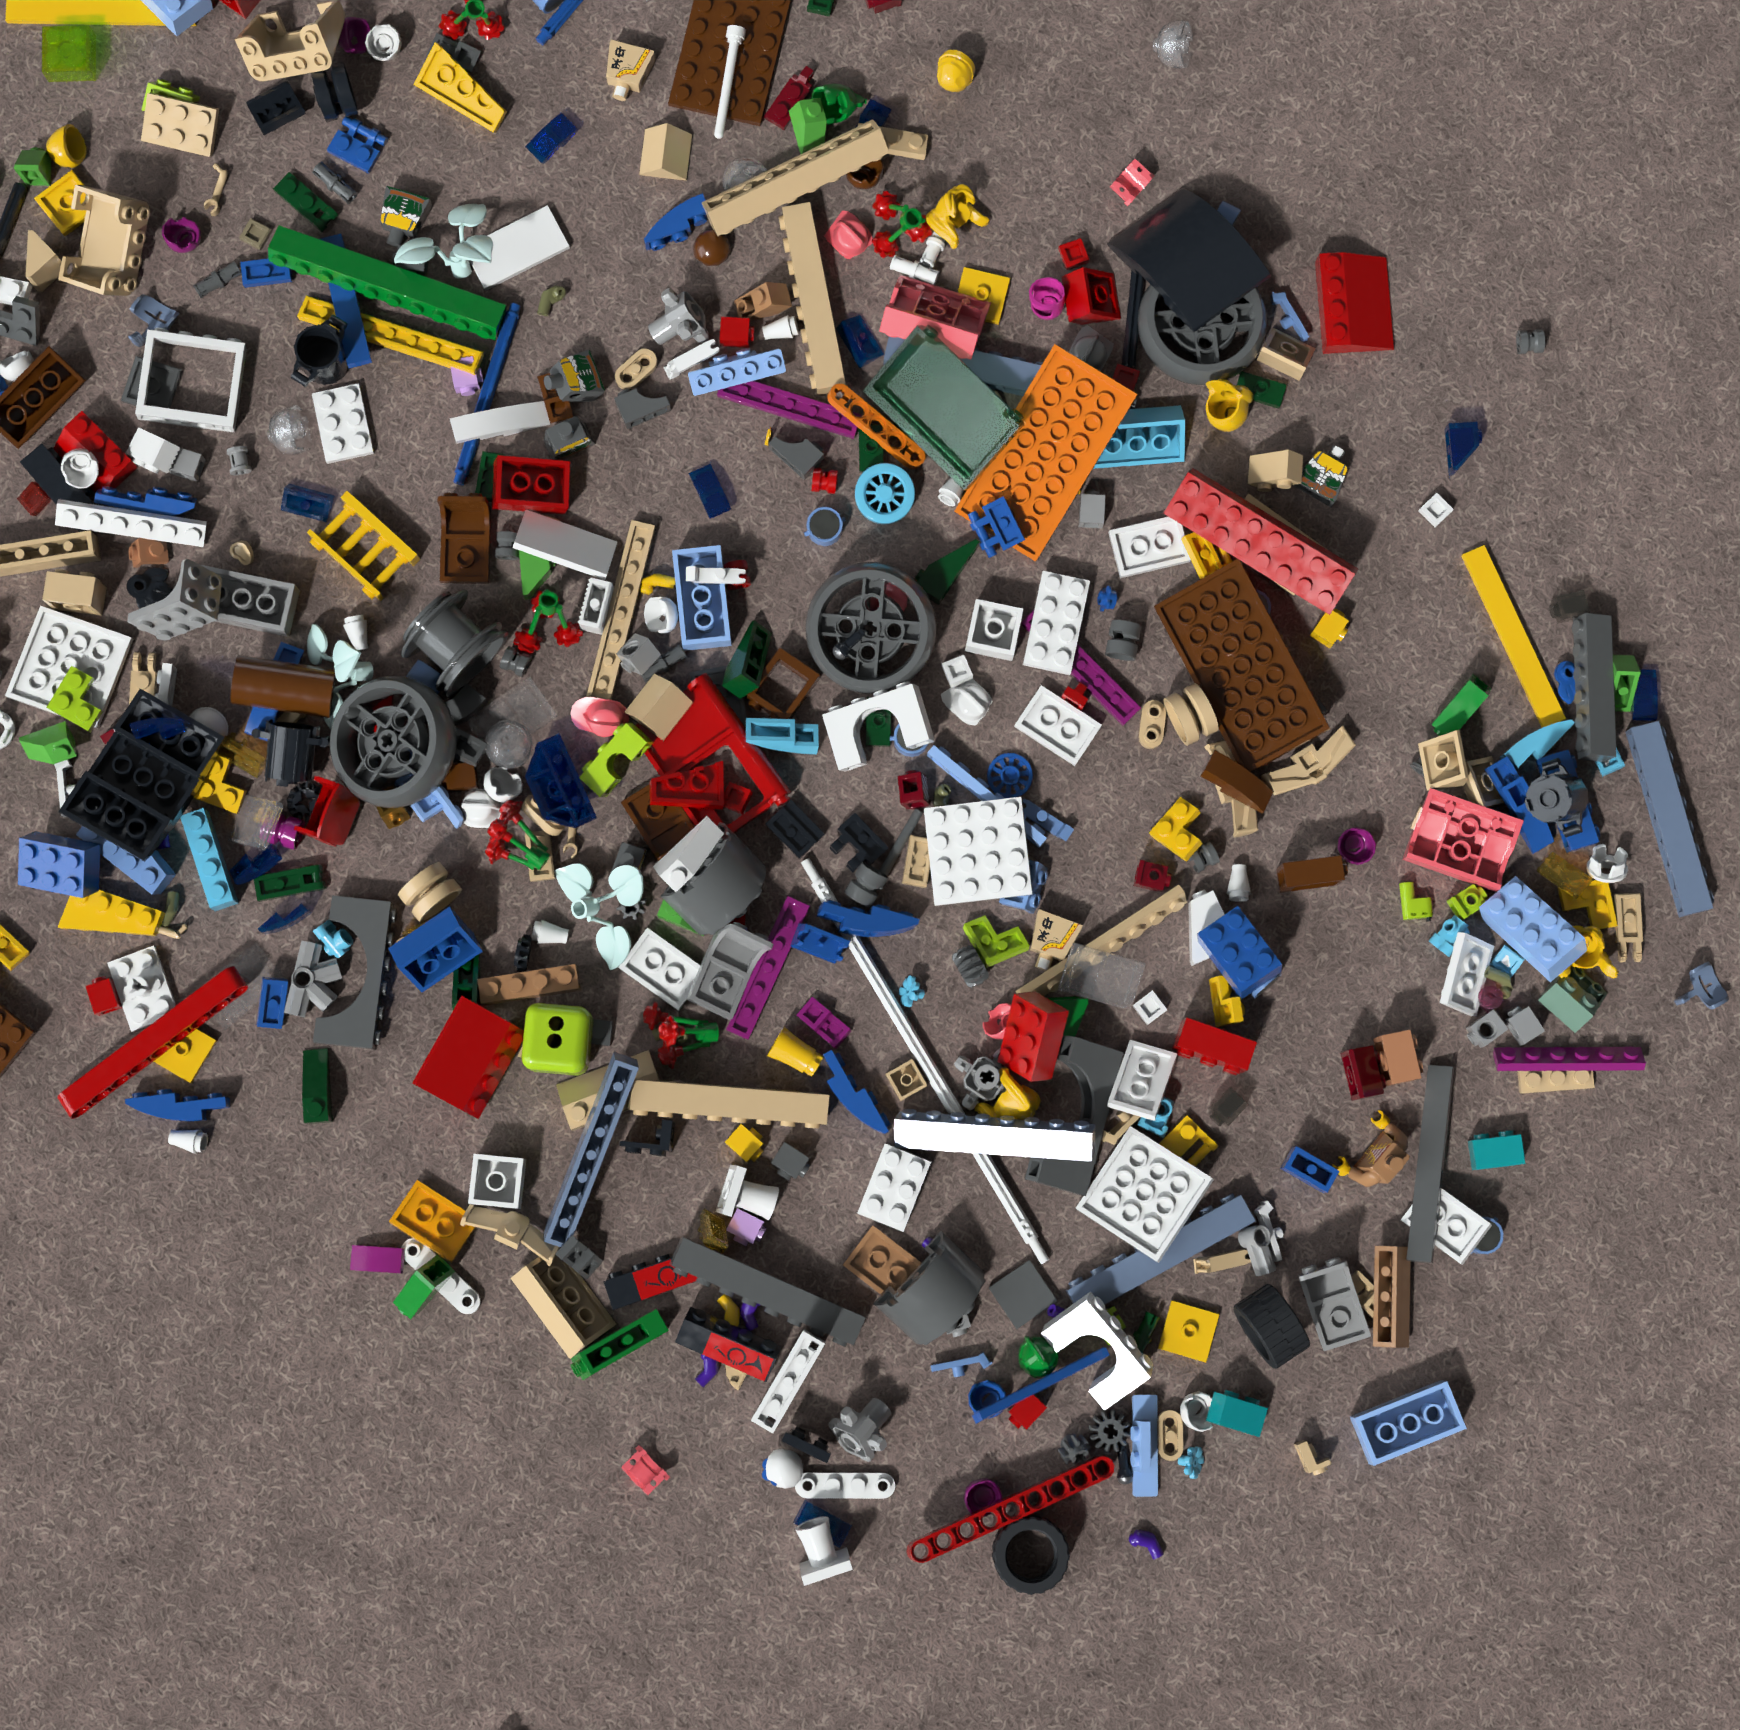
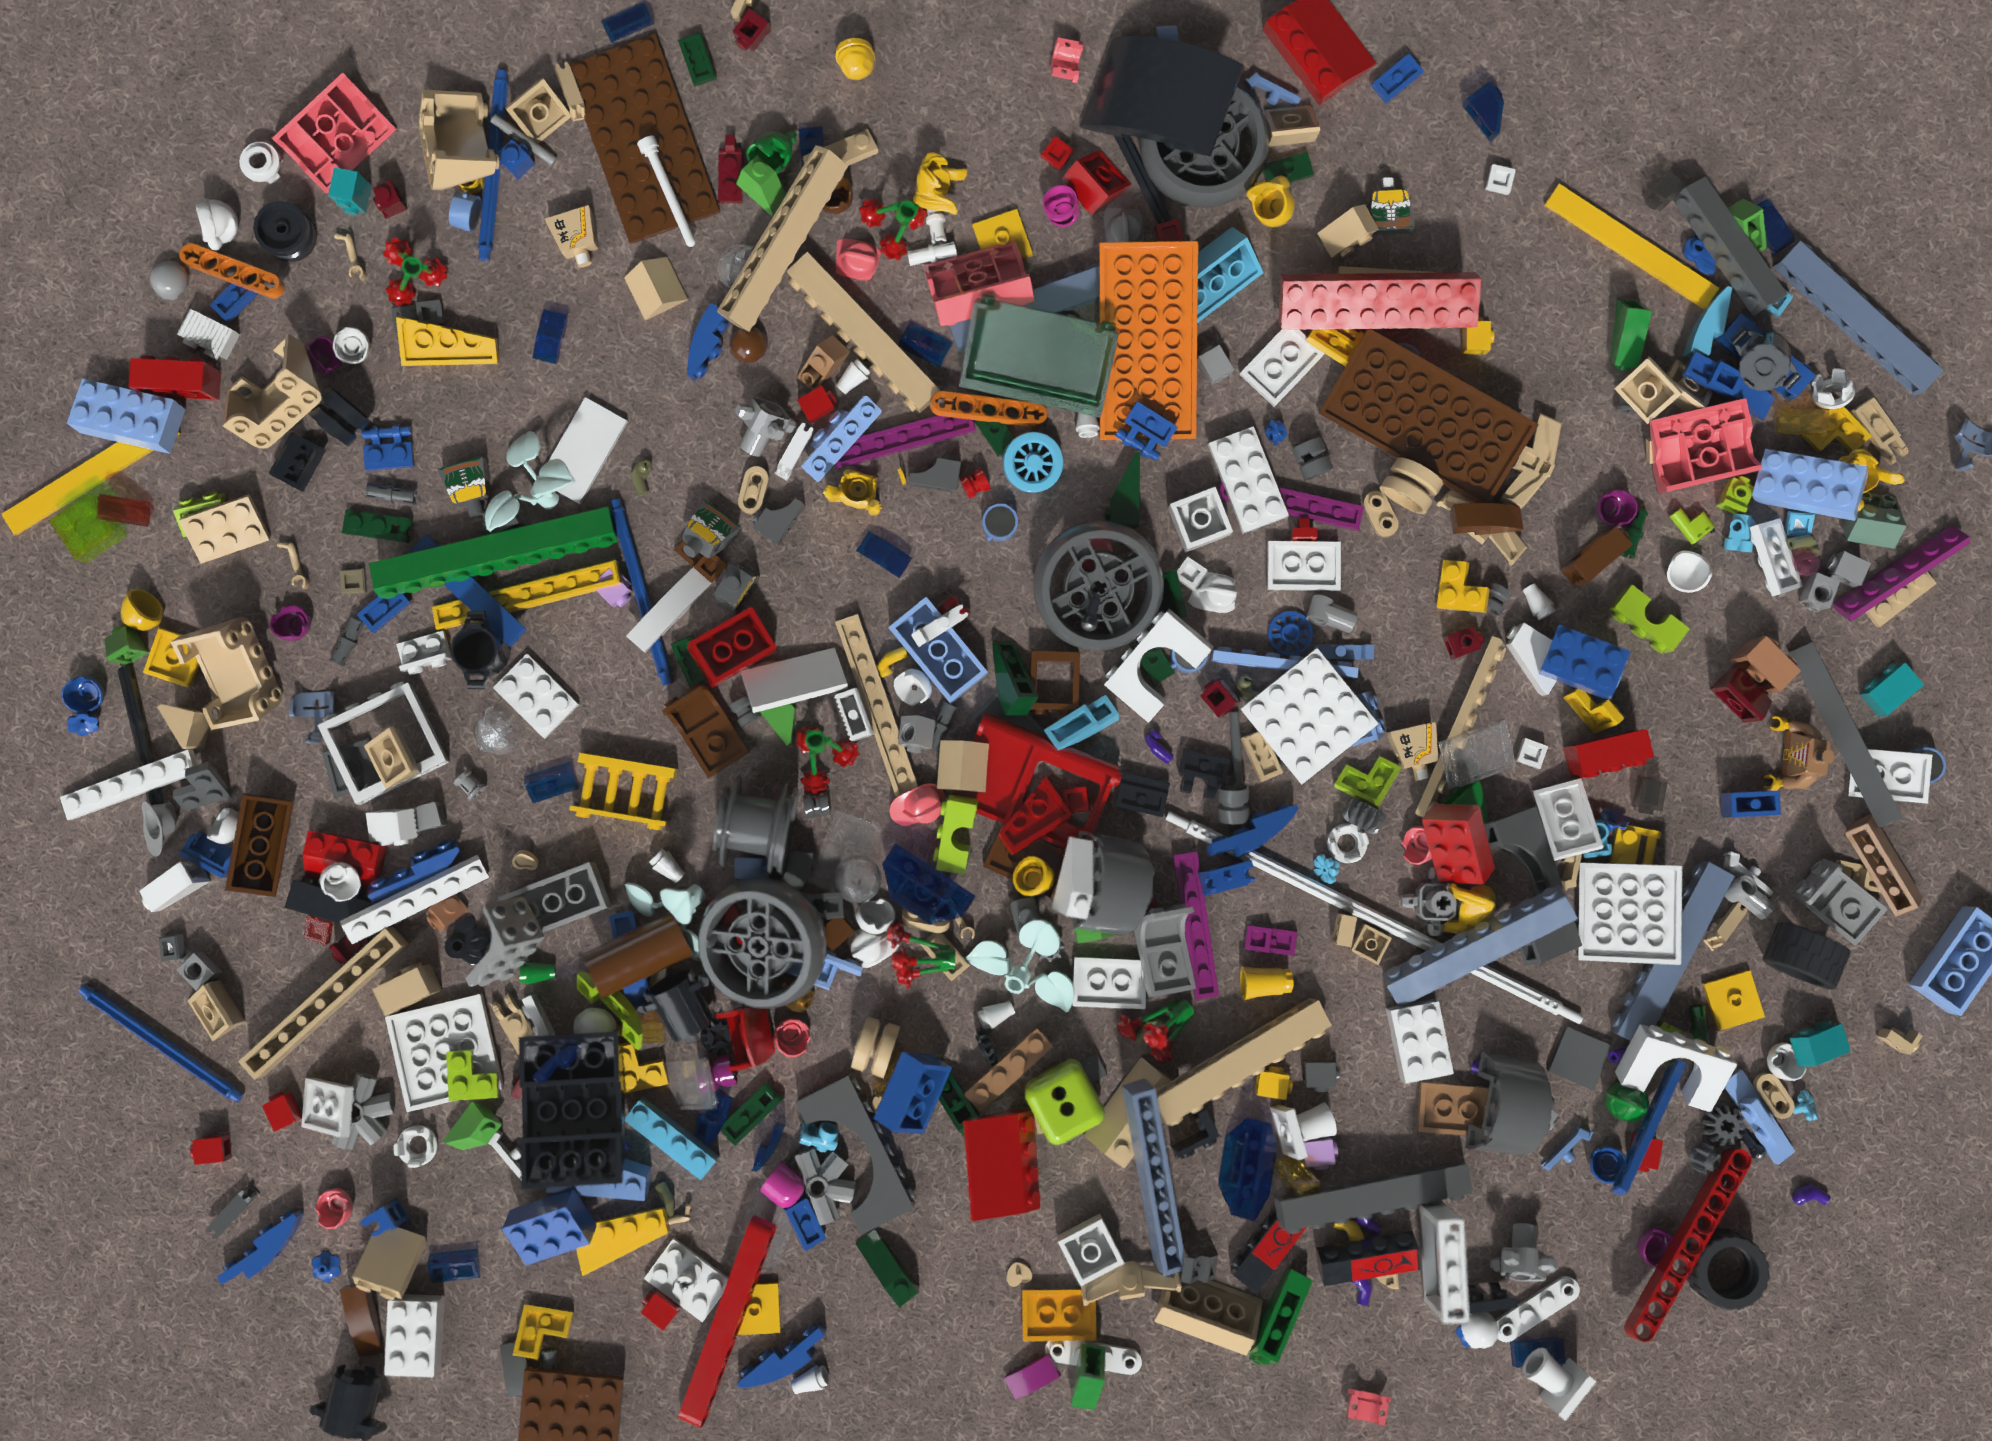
camera: 30 degrees left, 5 degrees up
(47, 528) = (345, 950): none -> dark red bracket
(107, 57) = (123, 510): none -> clear red tile
(188, 649) = (536, 972): none -> green cone
(190, 394) = (392, 757): none -> tan slope
(238, 715) = (617, 1004): none -> lime slope
(274, 328) = (423, 652): none -> white bracket
(274, 958) = (783, 1186): none -> dark pink helmet
(362, 834) = (786, 1031): none -> coral hair
(423, 1166) = (1018, 1274): none -> tan piece
(656, 834) = (1033, 876): none -> yellow hat
(678, 1200) = (1248, 1167): none -> clear blue wedge
(714, 418) = (848, 495): none -> yellow hair
(832, 798) = (1156, 748): none -> dark purple arm
(857, 1103) = (1343, 989): blue slope -> none
(890, 1052) = (1344, 930): none -> tan piece
(930, 677) = (1173, 595): none -> dark green plate
(942, 968) = (1361, 843): none -> white piece
(1050, 774) = (1324, 612): none -> light grey piece
(1184, 1108) = (1614, 818): none -> blue plant
(1327, 979) = (1630, 609): none -> lime arch
(1358, 878) = (1635, 532): none -> dark green pin
(1383, 938) = (1689, 571): none -> white helmet
(1402, 372) = (1397, 78): none -> blue plate

